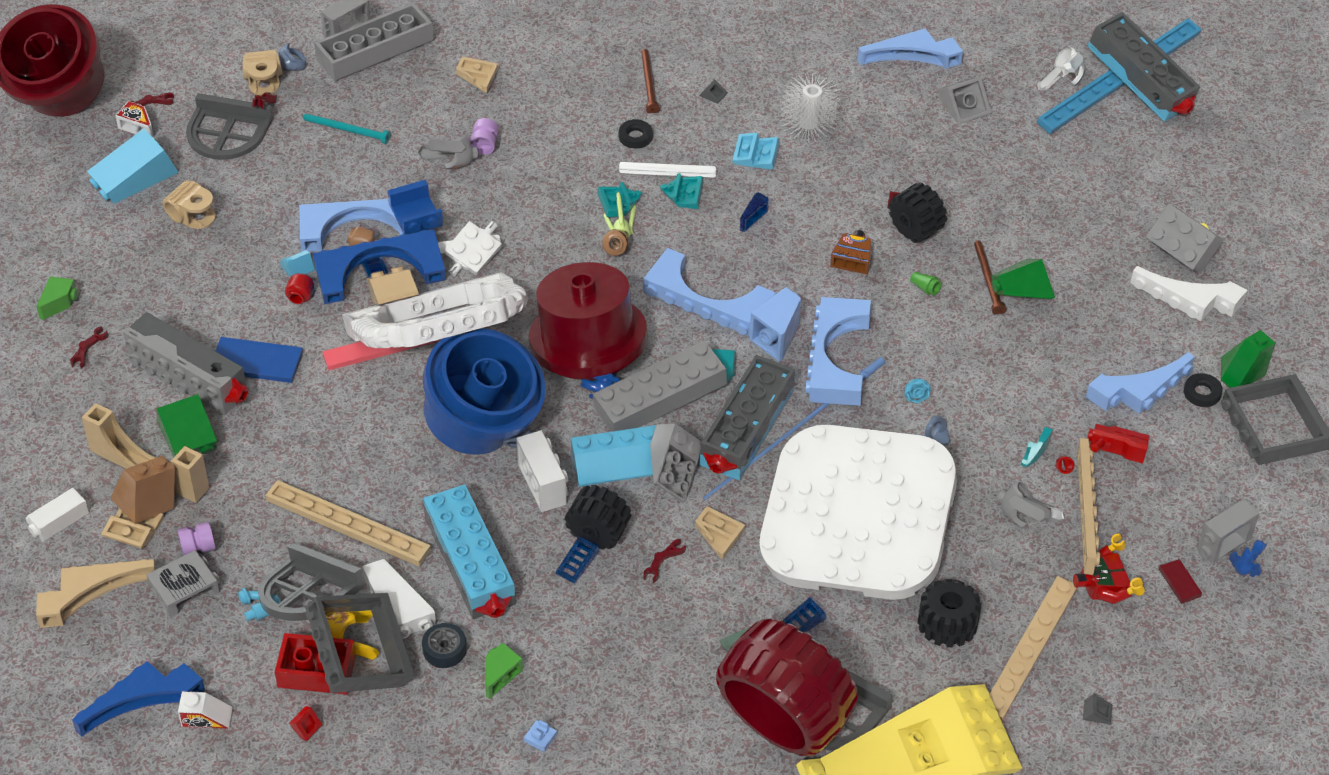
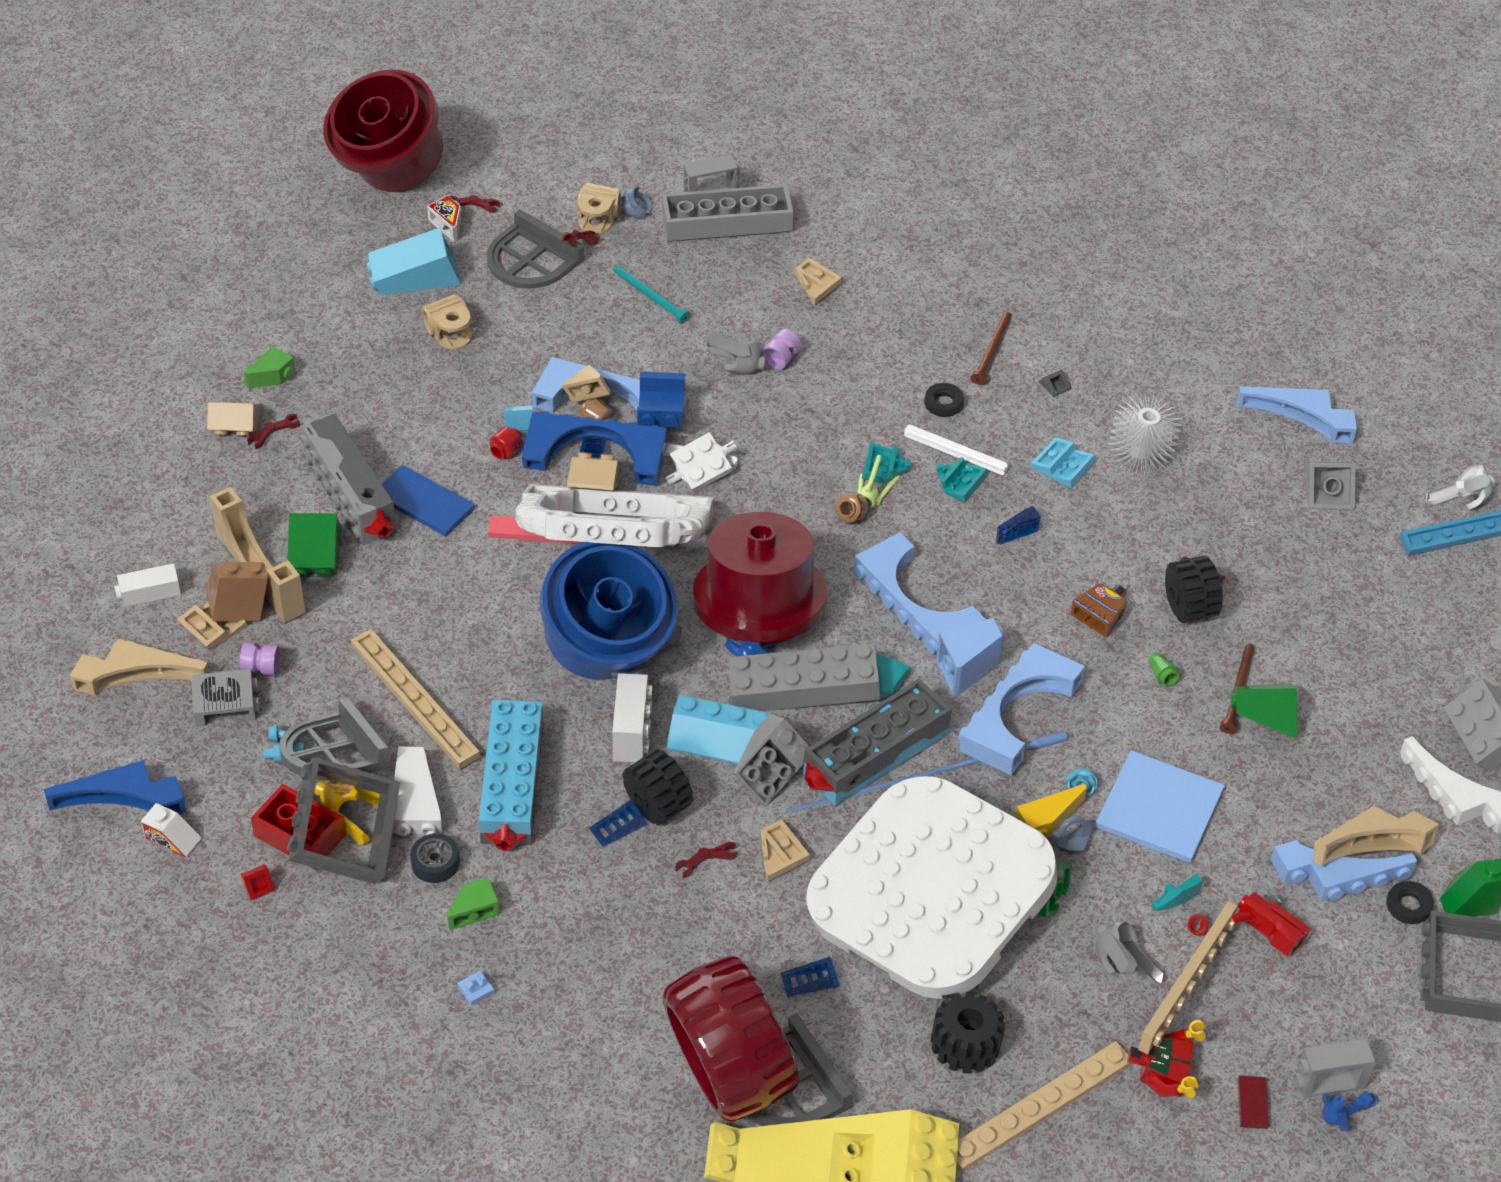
camera: 25 degrees right, 0 degrees up
(48, 347) = (233, 416): none -> tan slope
(345, 216) = (586, 385): none -> tan slope
(909, 418) = (1051, 811): none -> yellow slope
(983, 387) = (1160, 806): none -> light blue tile
(1154, 345) = (1375, 832): none -> tan arch

